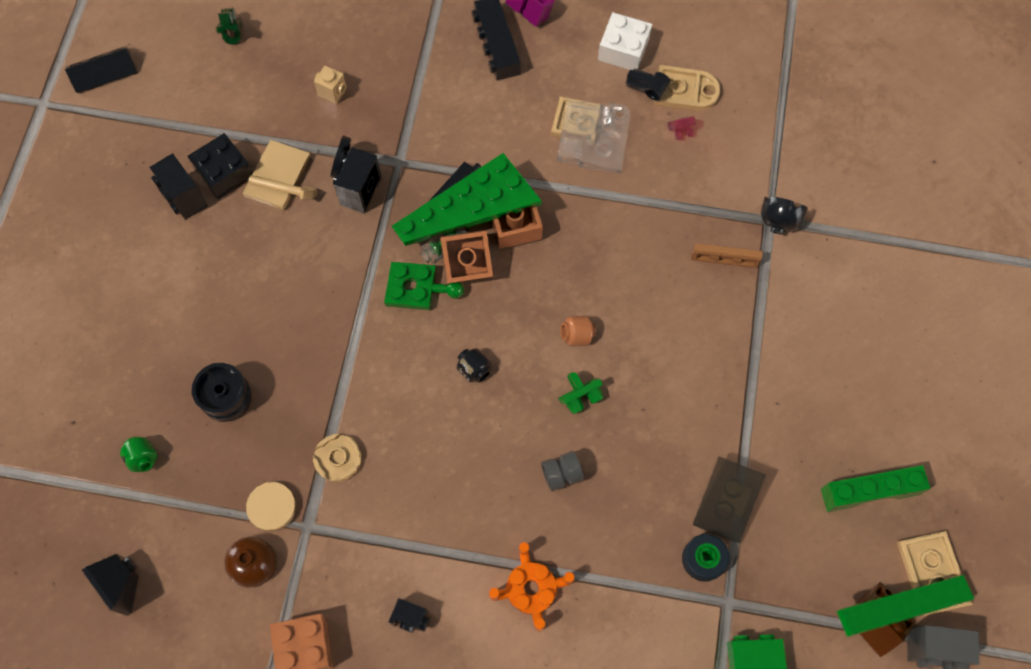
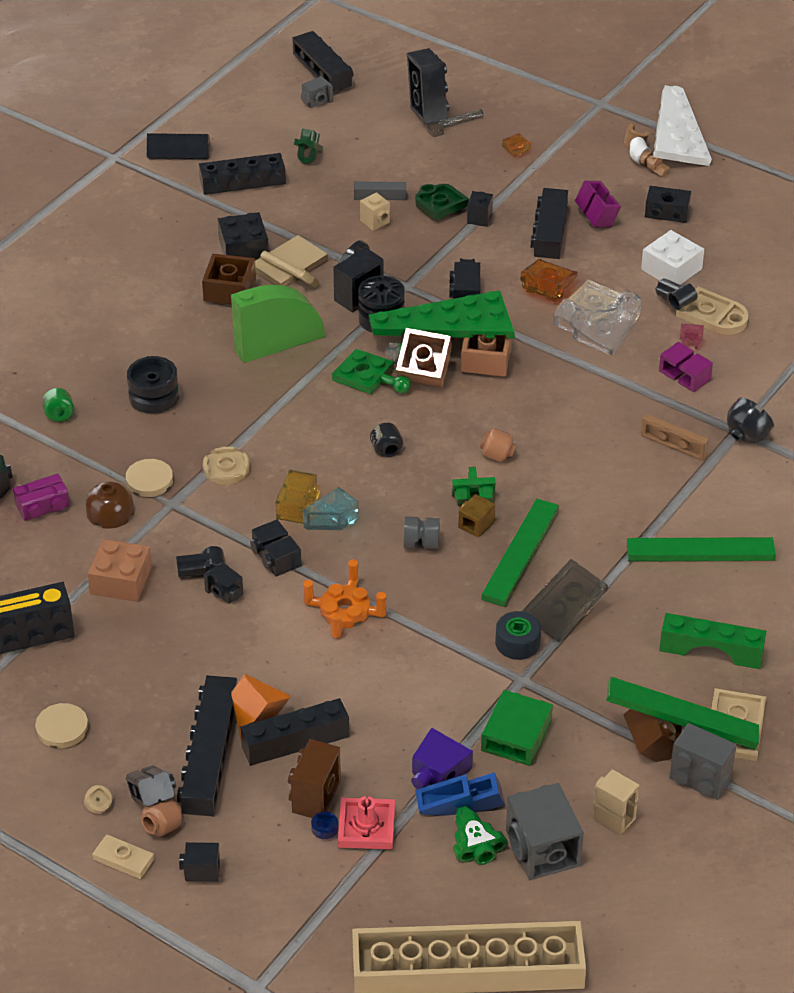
camera: 25 degrees right, 25 degrees down
(177, 187) = (196, 237): black brick -> none
(178, 583) = (41, 497): none -> magenta brick
(181, 82) = (242, 173): none -> black brick
(233, 226) = (227, 276): none -> reddish brown brick
(304, 269) = (272, 320): none -> bright green brick
(321, 54) = (387, 190): none -> dark grey piece
(380, 596) = (200, 563): none -> black piece
(382, 46) = (440, 200): none -> dark green plate
(389, 210) = (379, 295): none -> black wheel
(424, 543) = (277, 552): none -> black piece
(425, 44) = (479, 208): none -> black brick
(425, 474) = (296, 495): none -> clear yellow piece
(455, 140) = (465, 278): none -> black brick
(468, 478) = (331, 512): none -> clear light blue slope
(526, 108) = (547, 279): none -> clear orange slope
(599, 424) = (476, 515): none -> pearl gold brick
(656, 450) = (520, 552): none -> green tile
(706, 170) = (681, 360): none -> magenta piece
(807, 377) = (701, 549): none -> green tile

